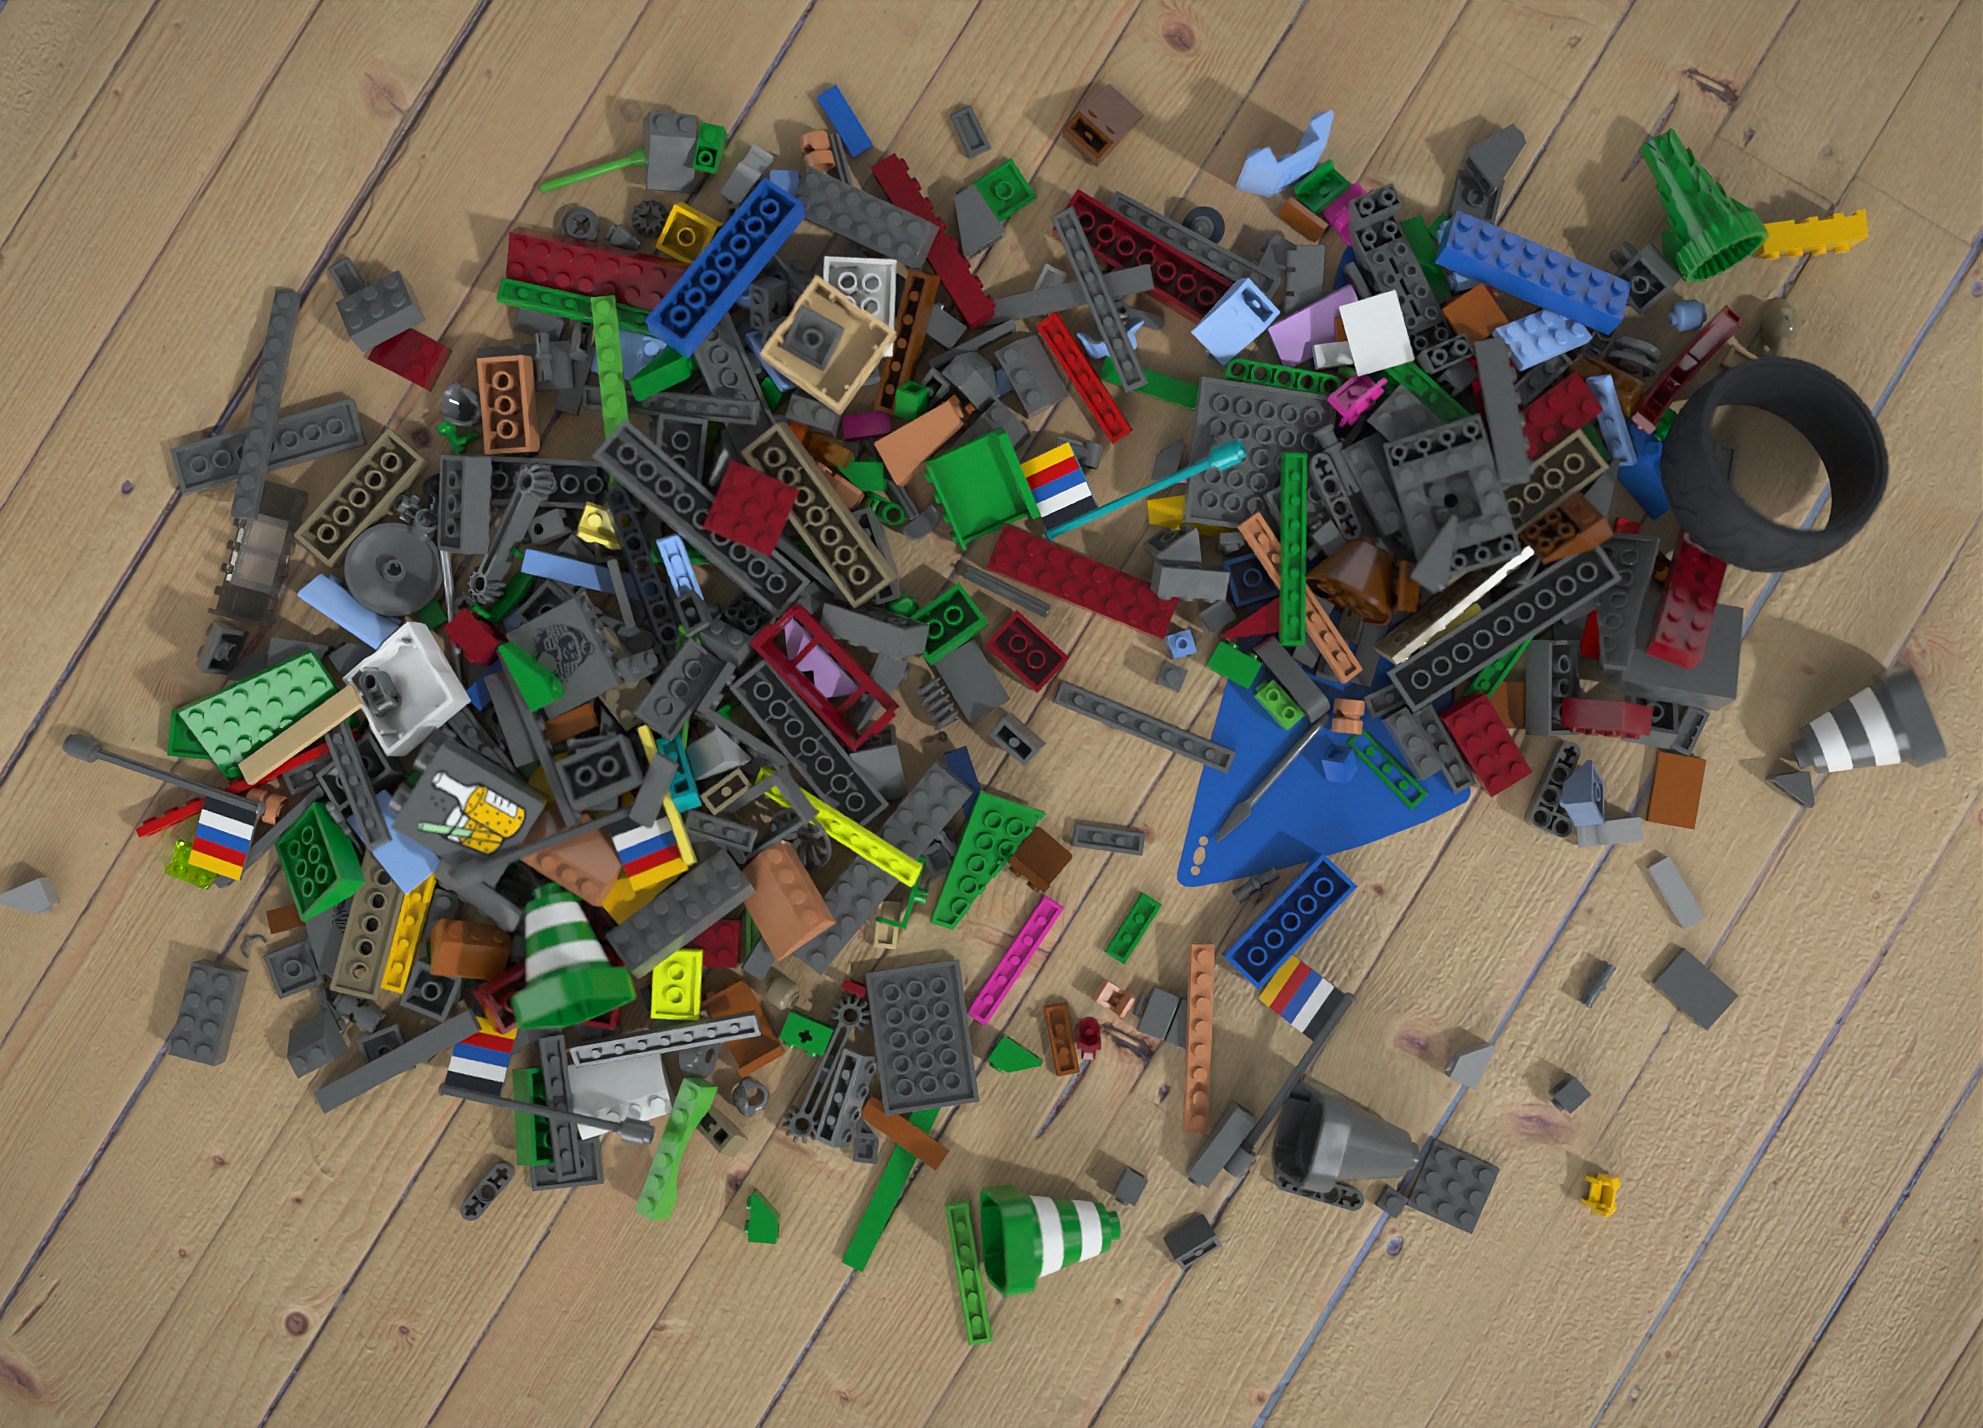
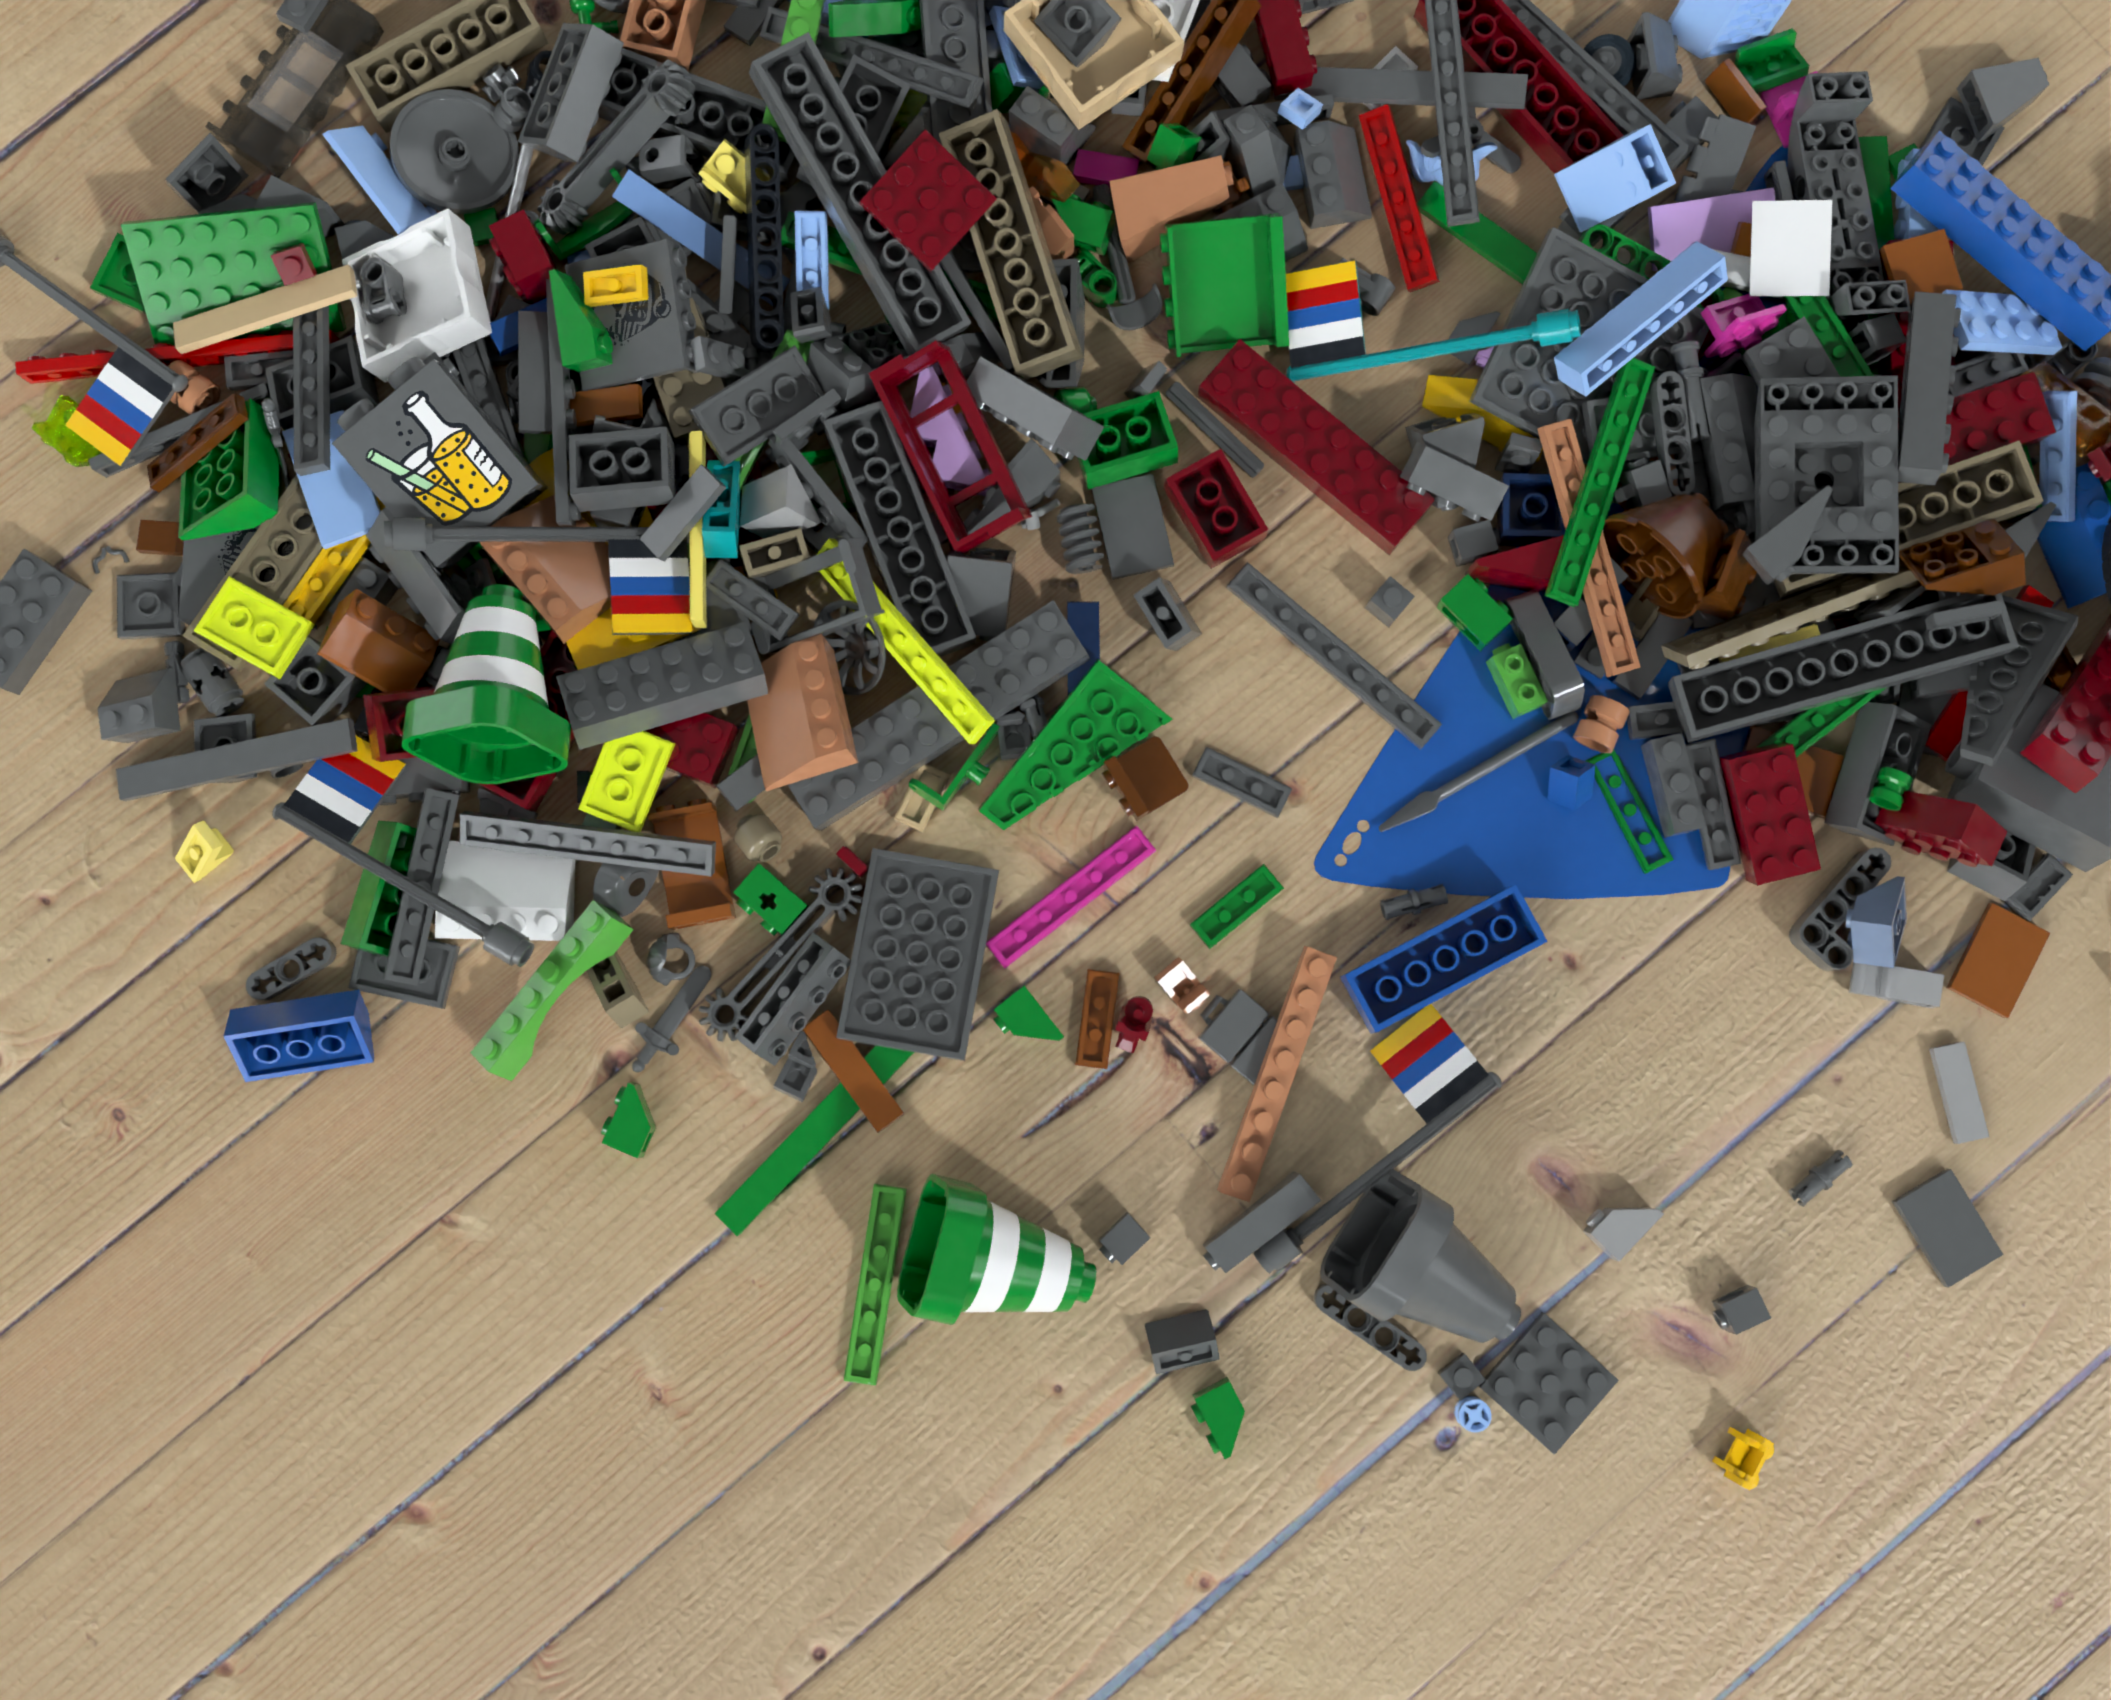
camera: 15 degrees right, 5 degrees down
(287, 844) = (197, 442): none -> reddish brown tile
(311, 697) = (293, 264): none -> dark red plate
(378, 967) = (254, 627): none -> neon yellow tile
(396, 1130) = (202, 851): none -> light yellow slope
(511, 1235) = (300, 1035): none -> blue slope
(549, 642) = (615, 285): none -> yellow plate
(761, 1153) = (658, 1036): none -> dark grey sword
(898, 696) = (1034, 522): none -> light grey hand
(947, 576) = (1146, 380): none -> dark grey tile
(993, 340) = (1300, 108): none -> light blue plate
(1180, 644) = (1415, 564): medium blue brick -> none
(1235, 1281) = (1223, 1414): none -> green slope
(1237, 213) = (1656, 60): none -> dark grey slope
(1285, 423) = (1641, 318): none -> light blue brick
(1411, 1228) = (1478, 1418): none -> light blue wheel
(1563, 701) = (1890, 788): none -> green wheel
(1577, 570) = (1964, 615): none -> dark grey tile

